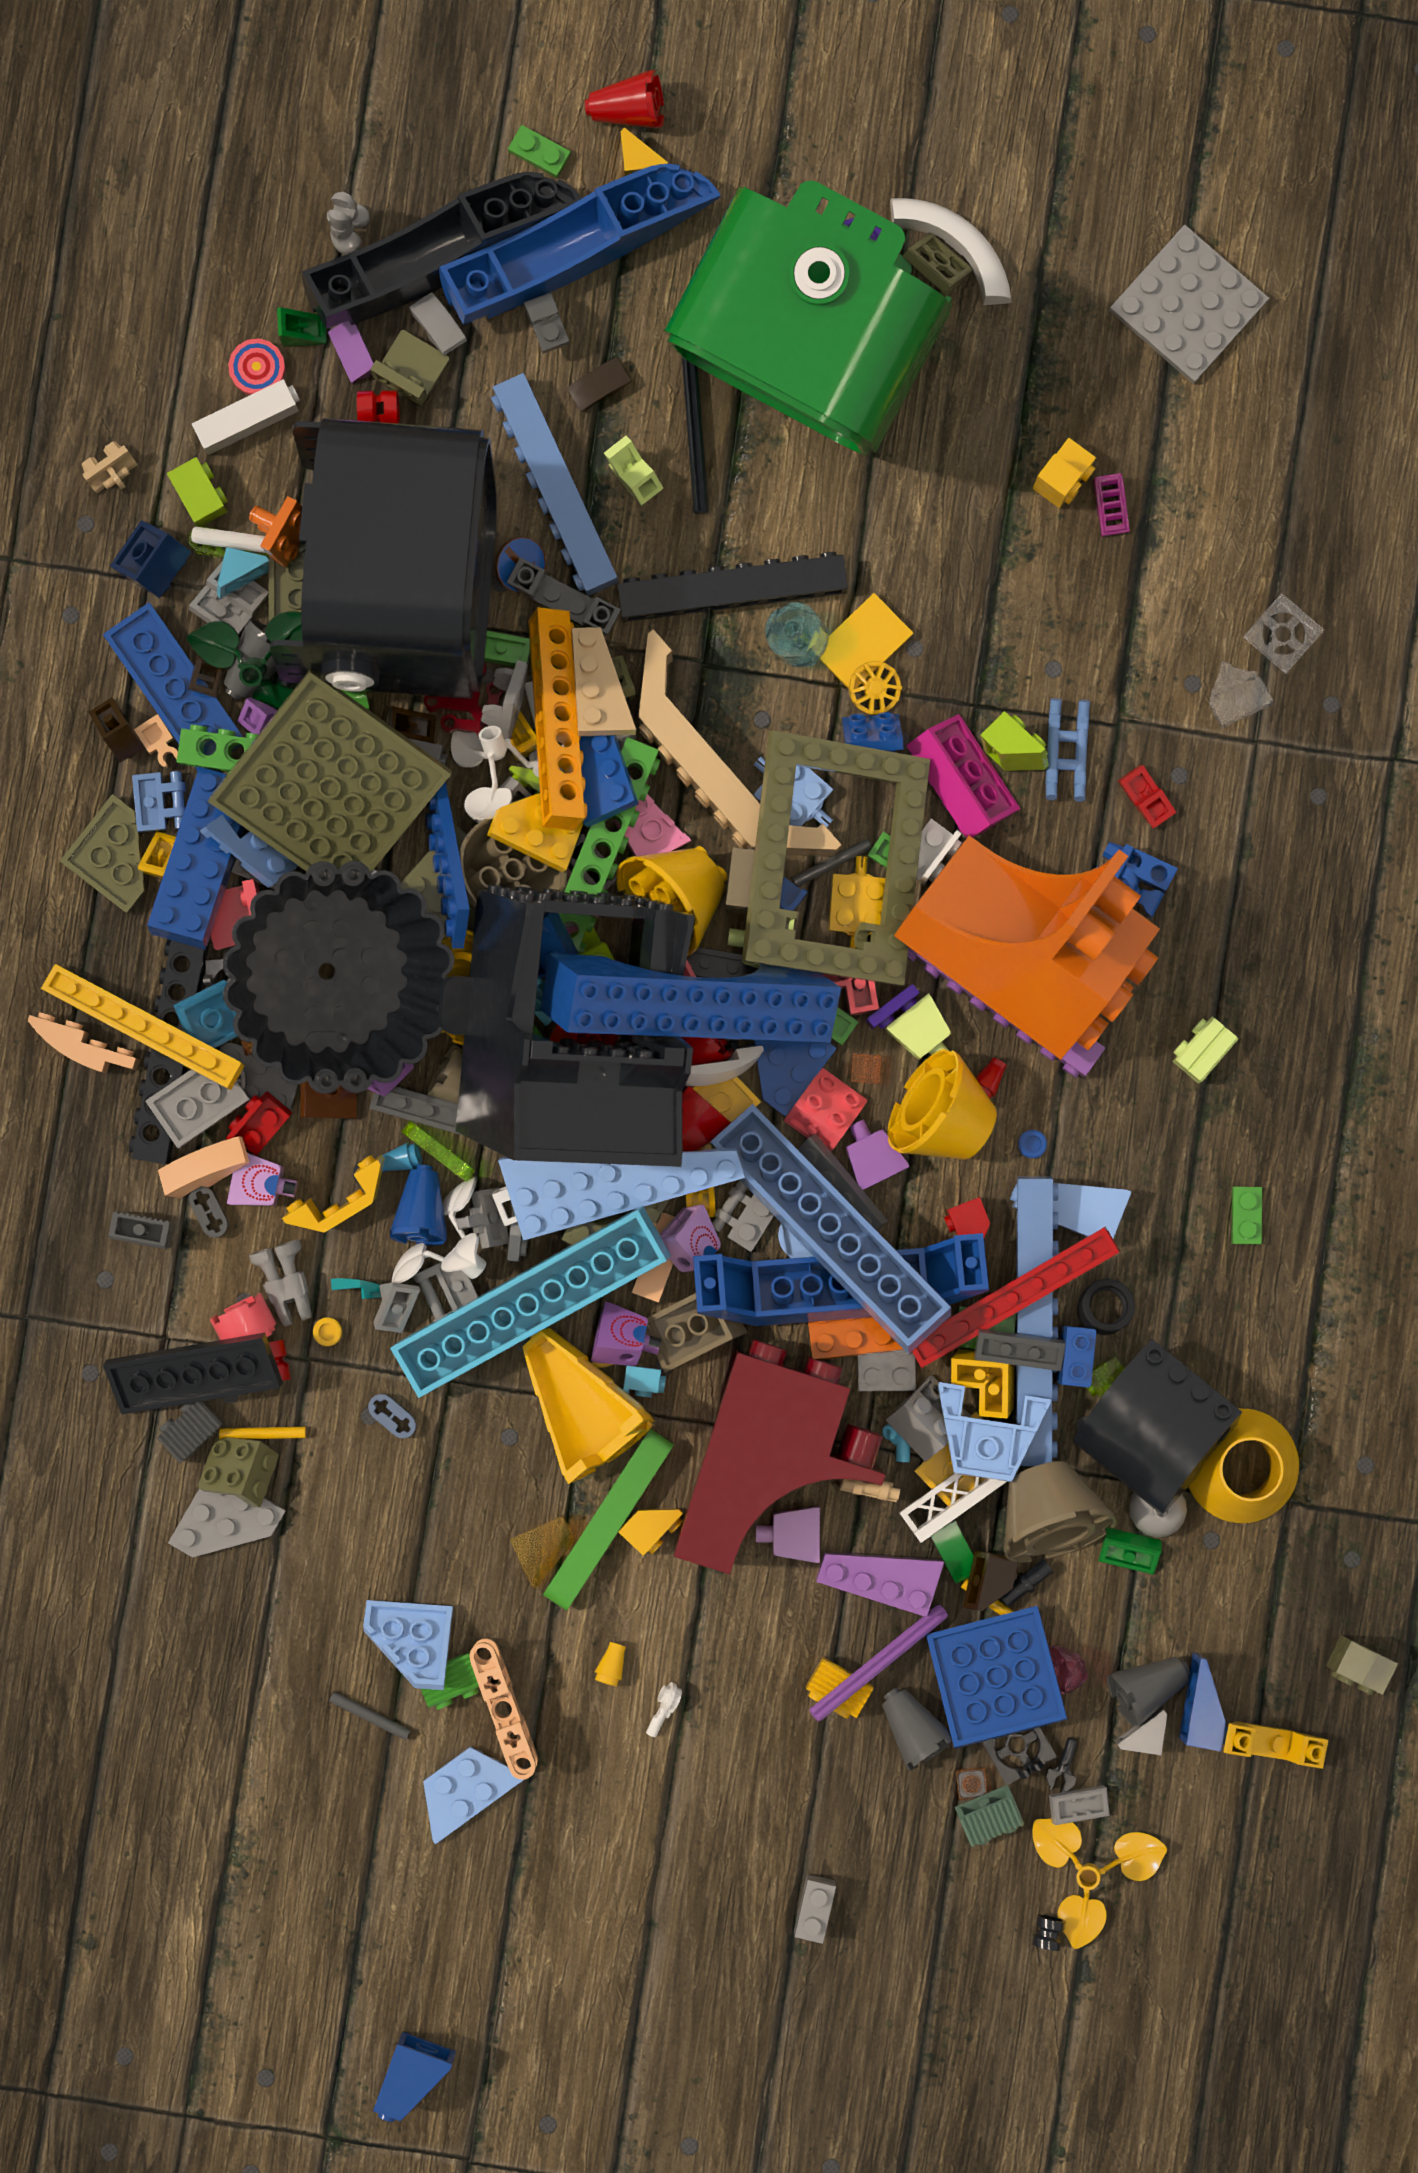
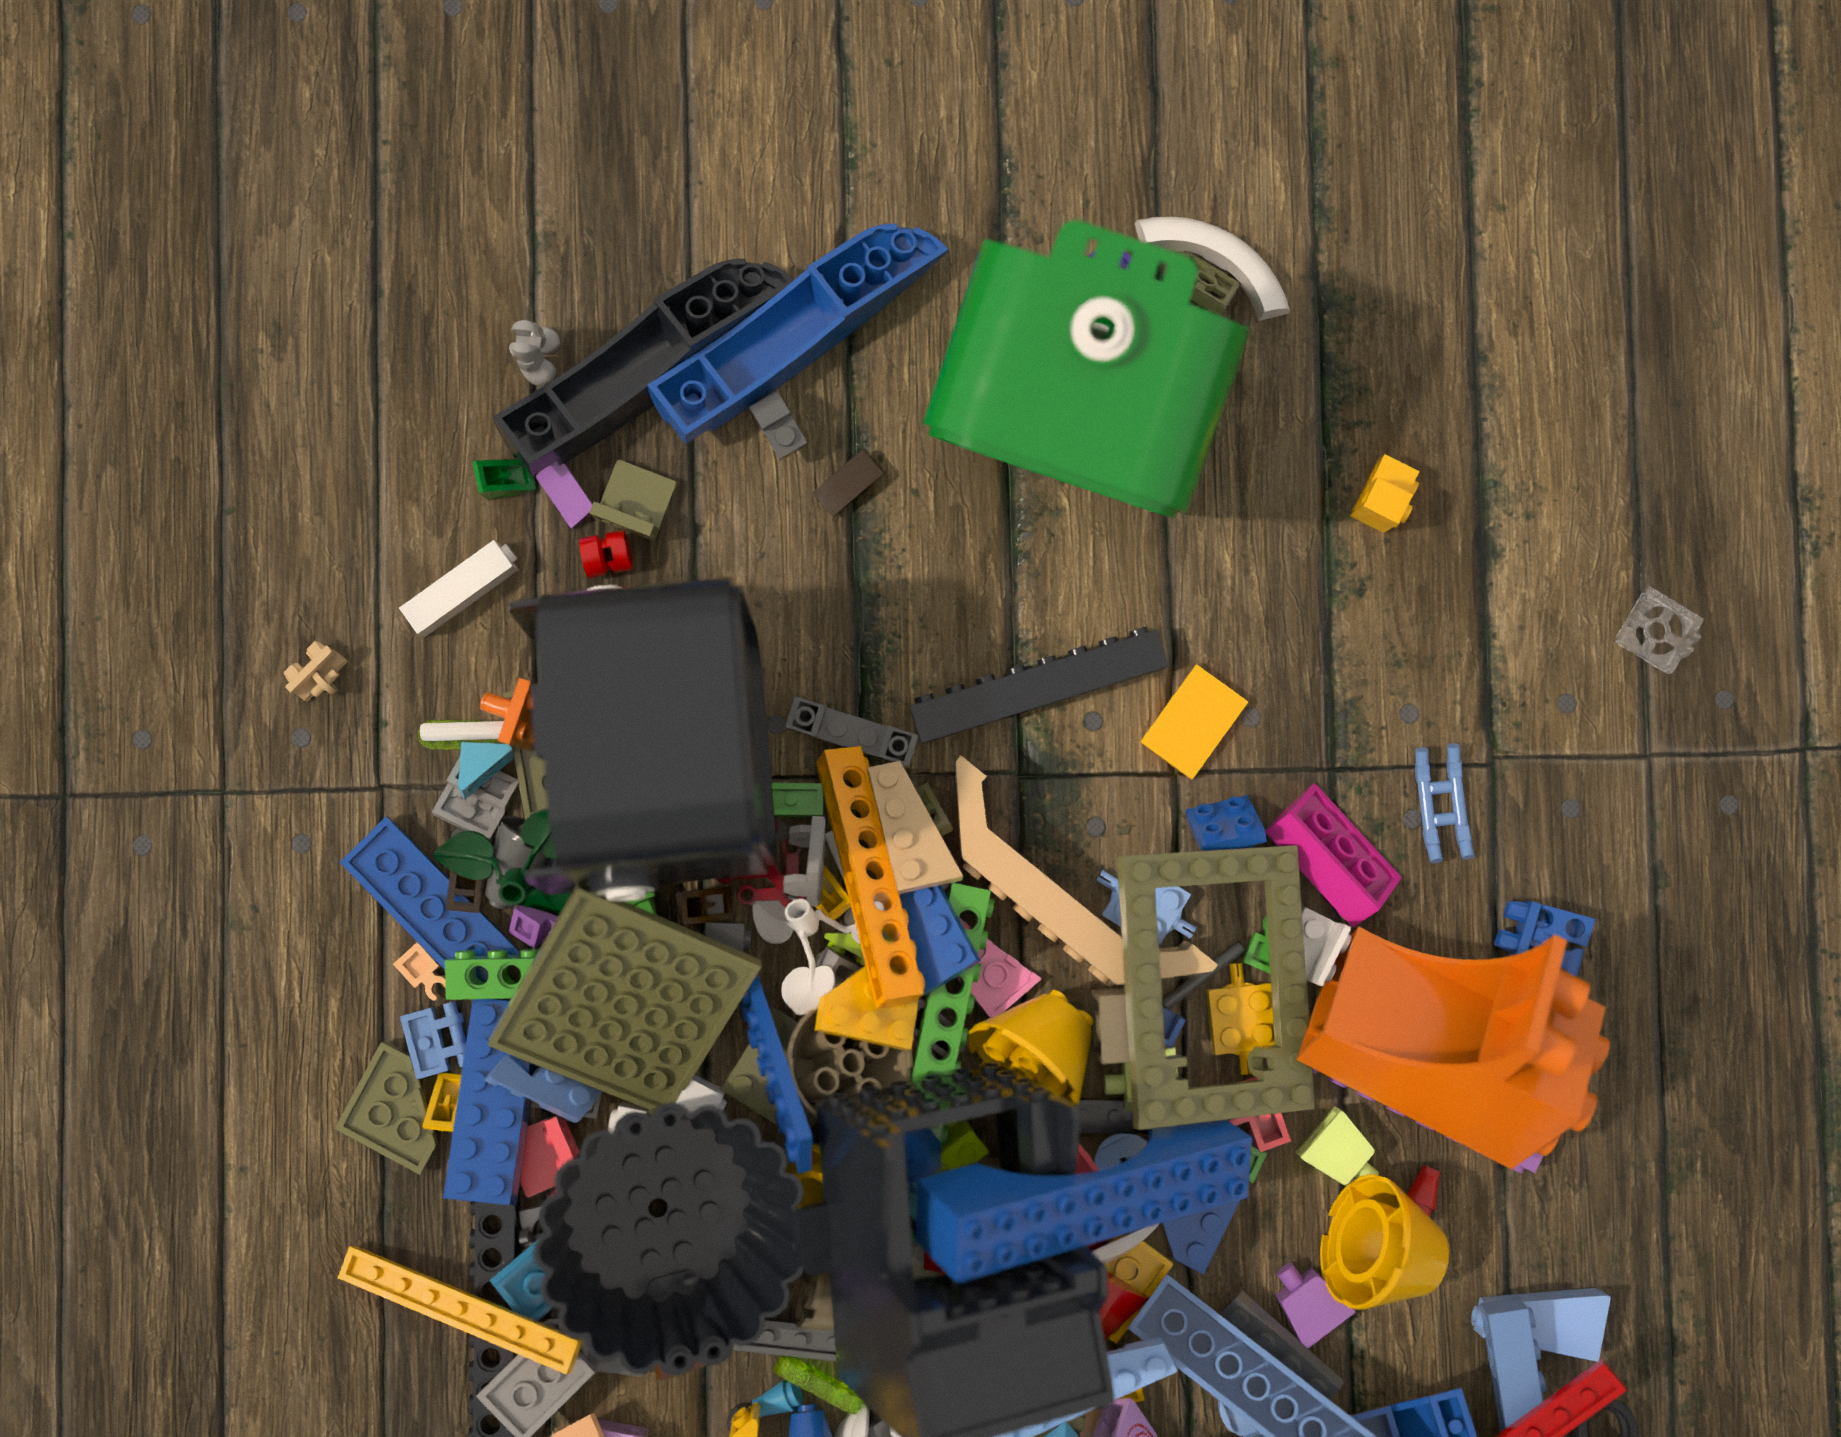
camera: 15 degrees left, 0 degrees up
(71, 1042) = (382, 1334): light nougat slope -> none
(116, 730) = (372, 968): dark brown slope -> none
(150, 559) = (379, 767): dark blue slope -> none
(197, 492) = (419, 682): lime brick -> none
(256, 365) = (461, 528): tile -> none
(260, 1123) = (610, 1392): red bracket -> none
(437, 323) = (656, 446): light grey slope -> none
(511, 552) = (785, 689): blue piece -> none
(539, 151) = (736, 234): bright green plate -> none
(555, 485) = (819, 605): medium blue brick -> none
(629, 102) = (826, 162): red cone -> none
(633, 471) = (904, 575): yellowish green brick -> none
(637, 154) = (846, 219): yellow slope -> none
(695, 437) = (966, 524): black axle -> none
(752, 1221) = (1182, 1407): light grey plate -> none
(801, 621) = (1113, 713): clear light blue brick -> none
(826, 1109) = (1249, 1259): coral bracket -> none
(865, 1068) = (1282, 1202): clear orange tile -> none
(875, 687) = (1216, 770): yellow wheel -> none
(903, 1001) = (1302, 1131): dark purple plate -> none
(967, 1218) = (1432, 1361): red slope -> none
(1013, 746) = (1388, 814): lime slope -> none
(1032, 1144) = (1484, 1255): blue tile -> none
(1106, 480) = (1449, 504): magenta slope -> none
(1146, 796) = (1541, 840): red slope -> none
(1189, 304) = (1486, 281): light grey plate -> none
(1204, 1049) = (1659, 1115): yellowish green brick -> none
(1237, 695) = (1620, 708): clear slope -> none
(1246, 1215) = (1738, 1293): bright green plate -> none

